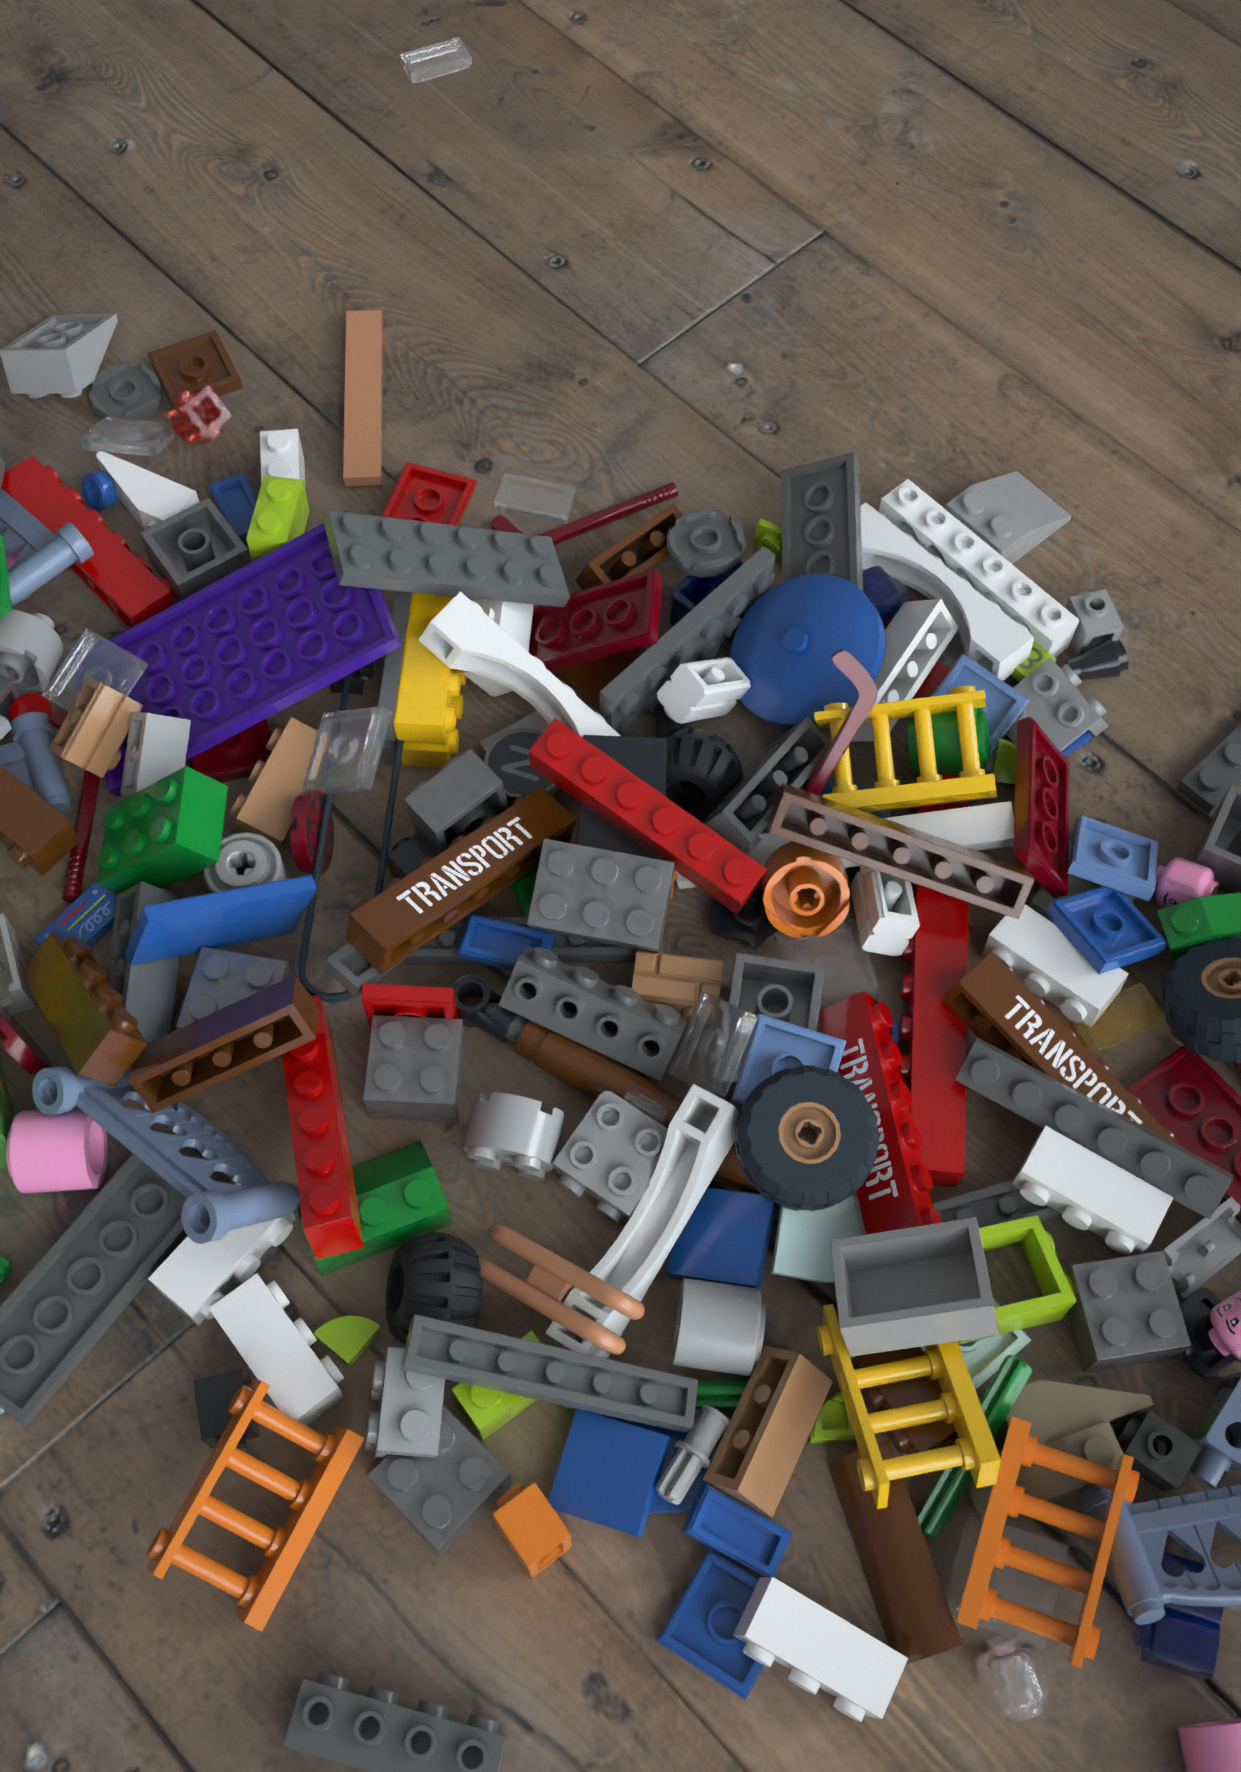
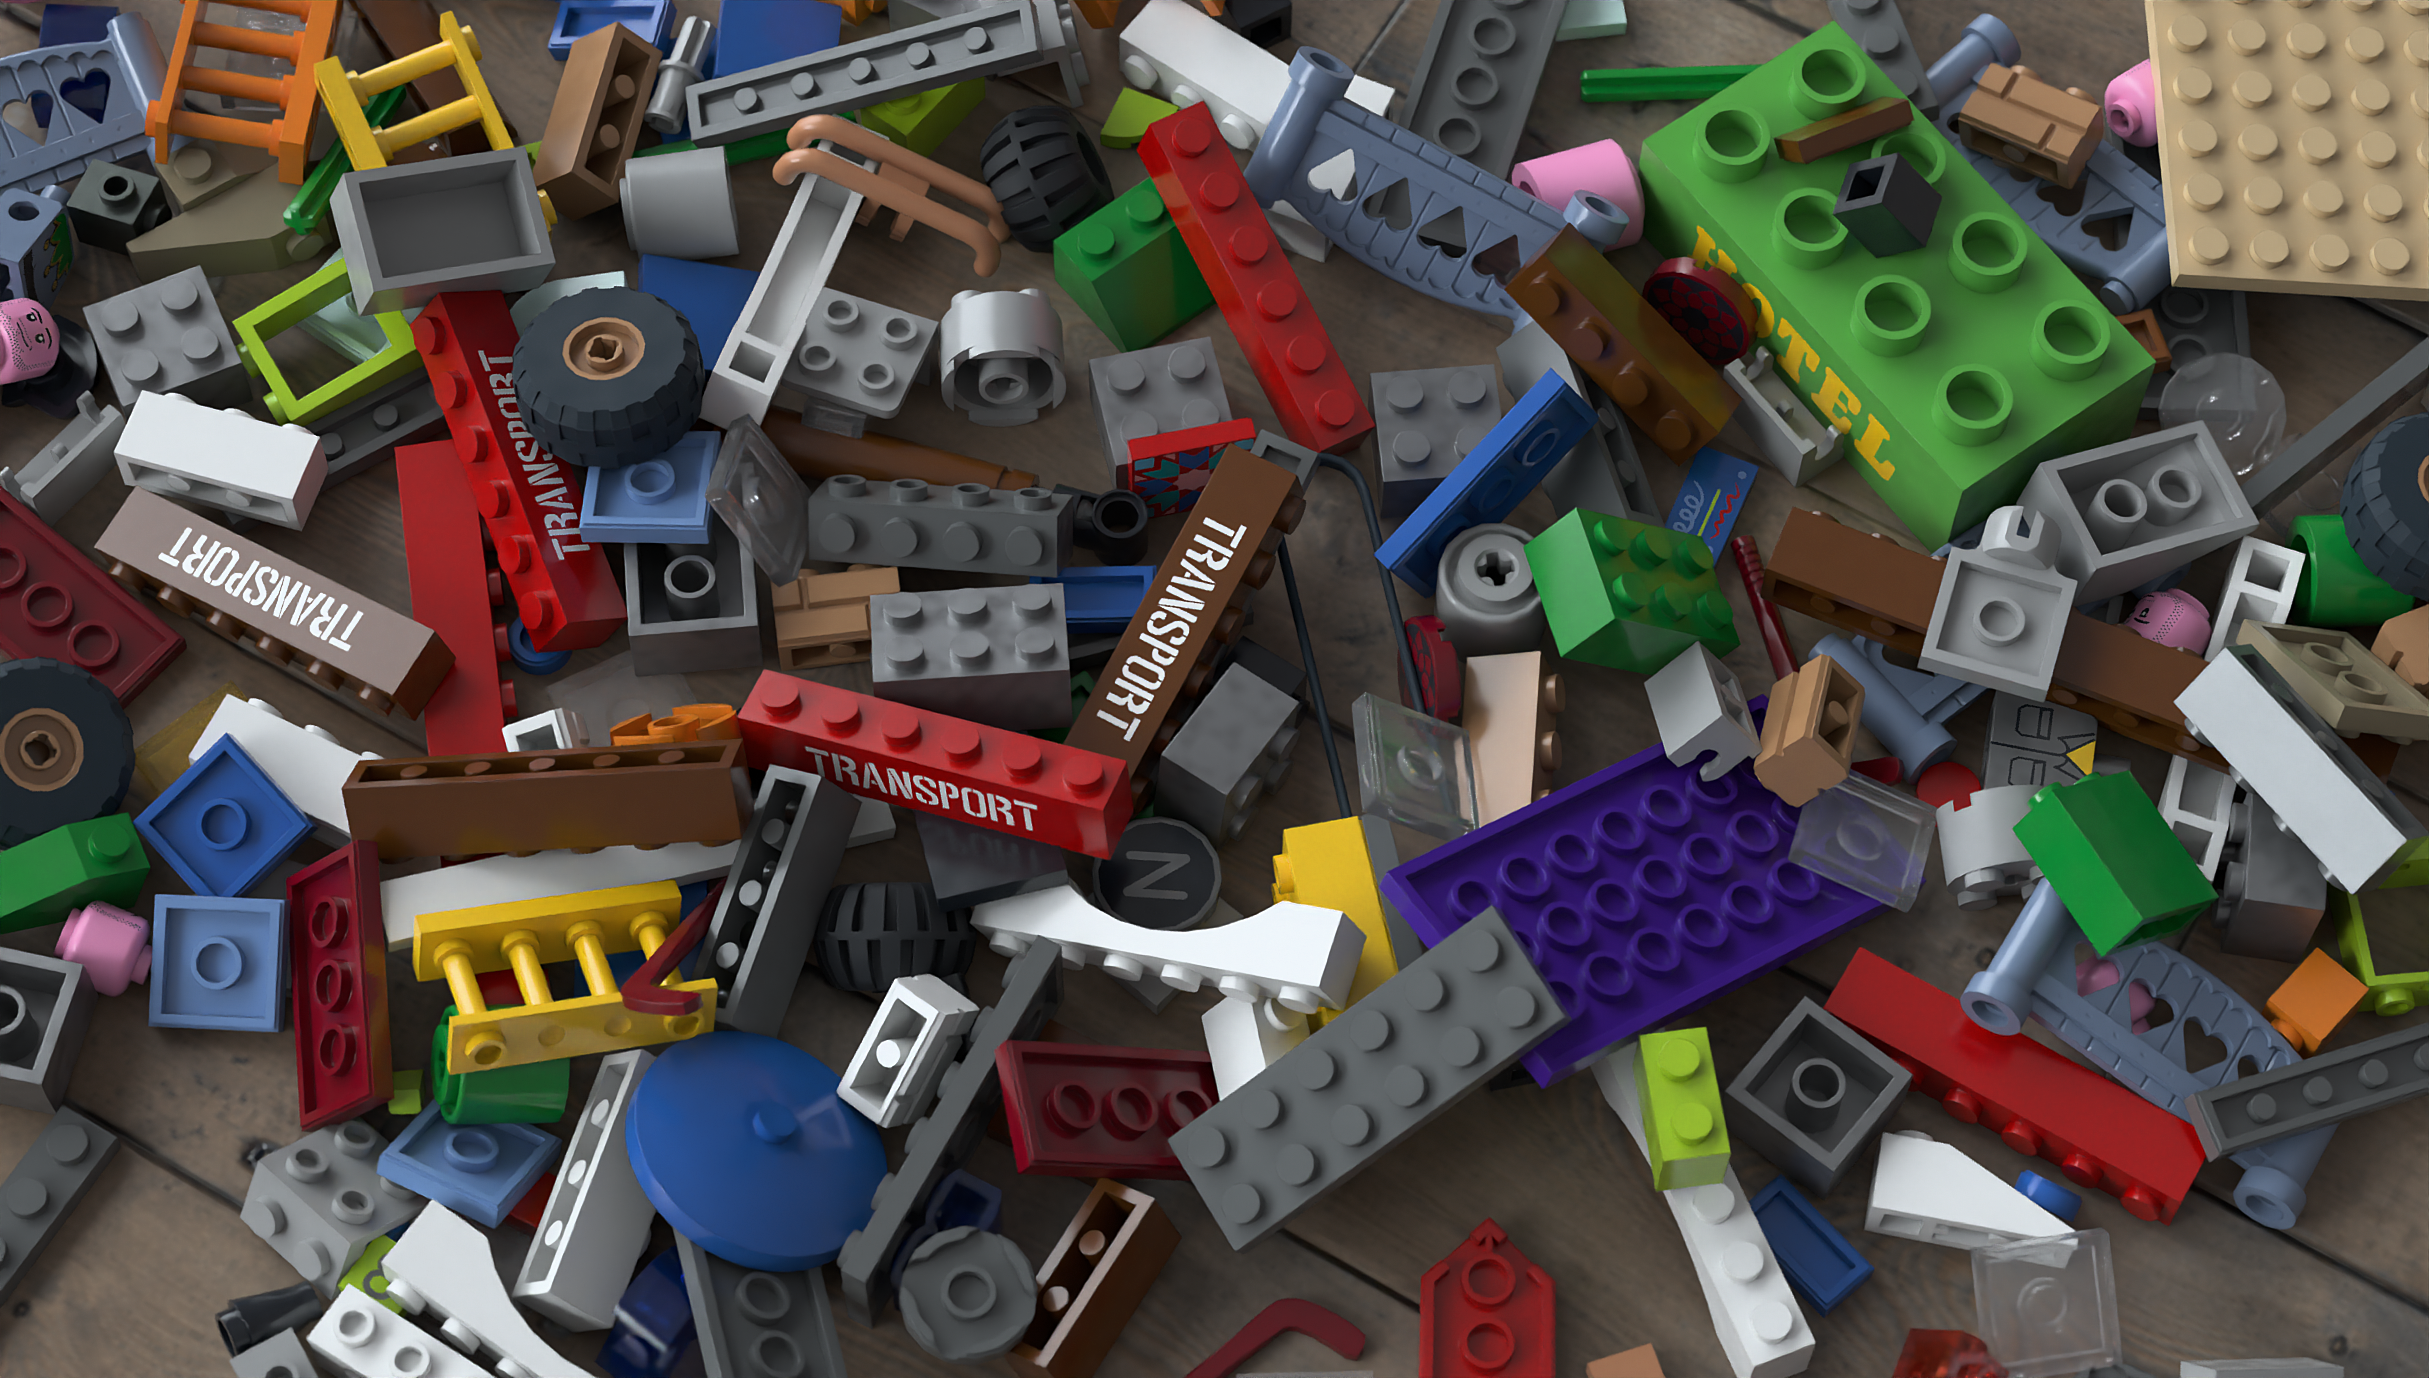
camera: 165 degrees right, 0 degrees up
(225, 1044) = (1403, 325): reddish brown brick -> none
(1095, 1127) = (229, 515): dark grey plate -> none

